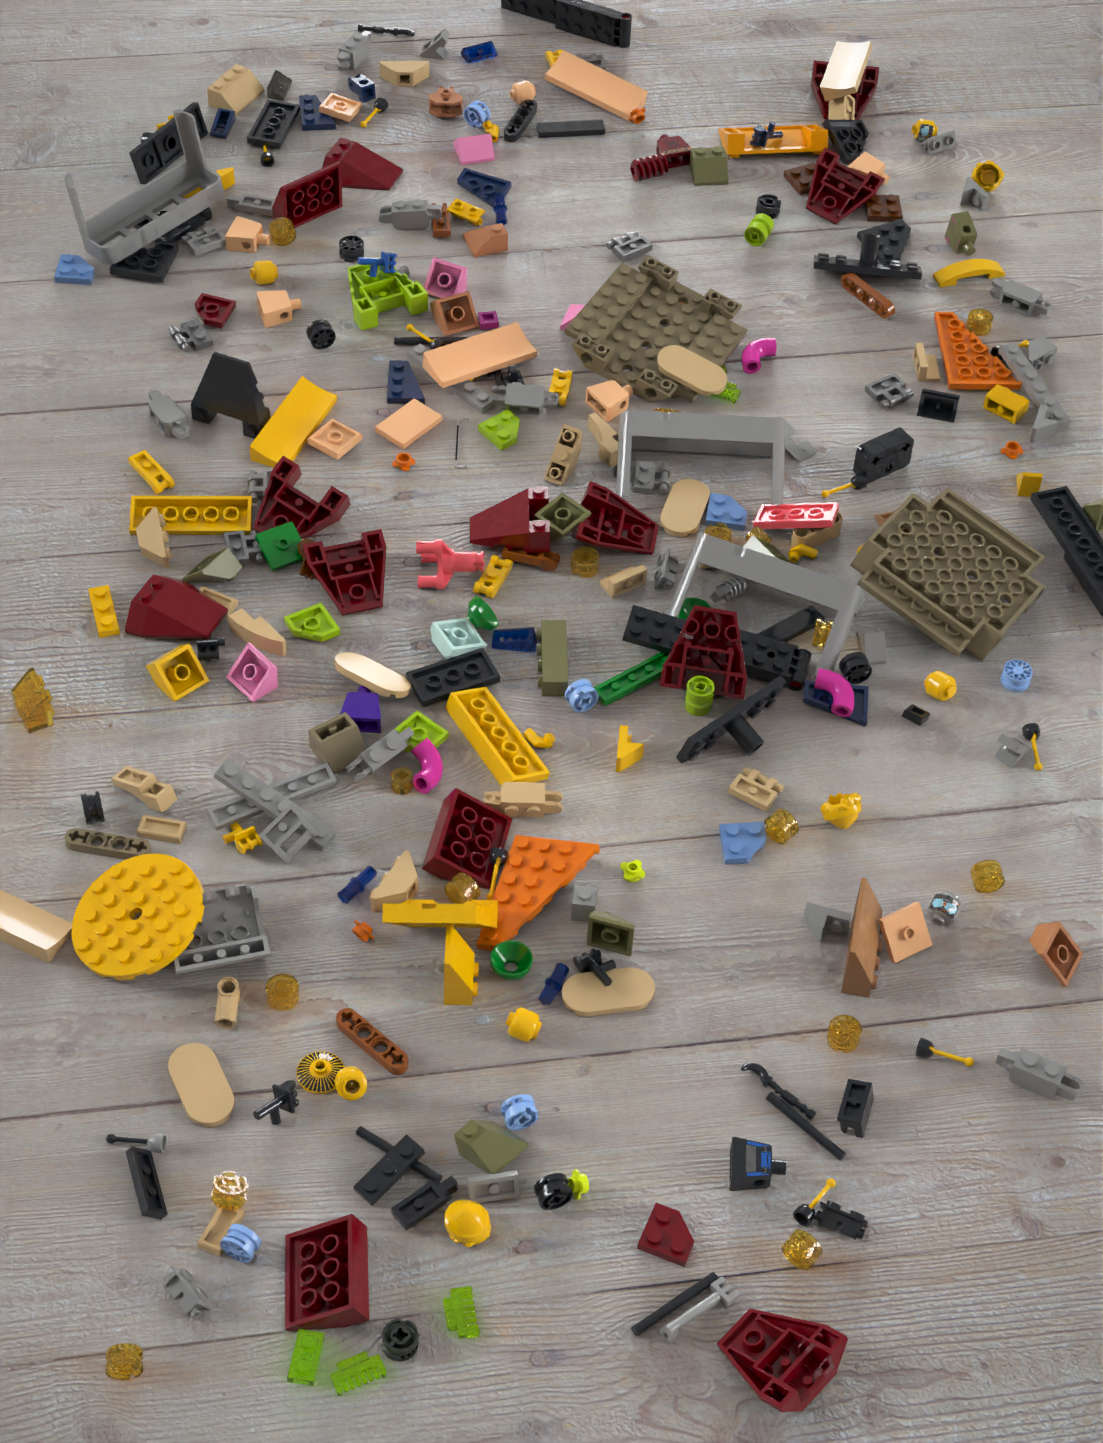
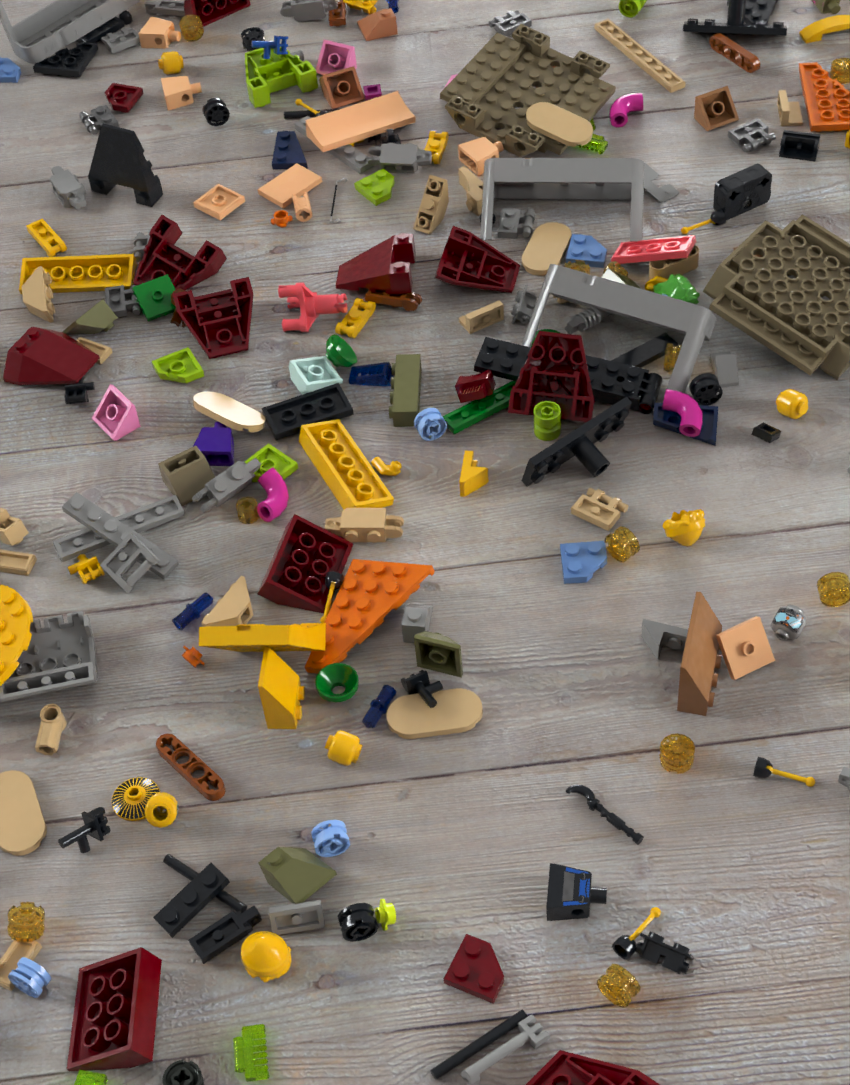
camera: 10 degrees right, 0 degrees up
(178, 672) = (45, 415): yellow slope -> none
(257, 632) = (124, 376): tan slope -> none
(282, 992) = (106, 718): clear yellow wheel -> none
(292, 423) = (181, 188): yellow arch -> none
(425, 449) = (302, 207): none -> light nougat hinge
(462, 889) = (294, 612): clear yellow wheel -> none
(563, 515) = (424, 258): olive slope -> none
(585, 561) = (445, 301): clear yellow wheel -> none
(624, 657) = (475, 386): none -> dark red piece
(632, 871) = (468, 592): neon yellow plate -> none
(768, 292) = (640, 55): none -> tan tile
(806, 1126) = (632, 851): black bar -> none
(823, 561) = (678, 288): none -> bright green head
(851, 360) = (715, 109): none -> medium nougat slope
(856, 1106) = (685, 830): black hinge -> none

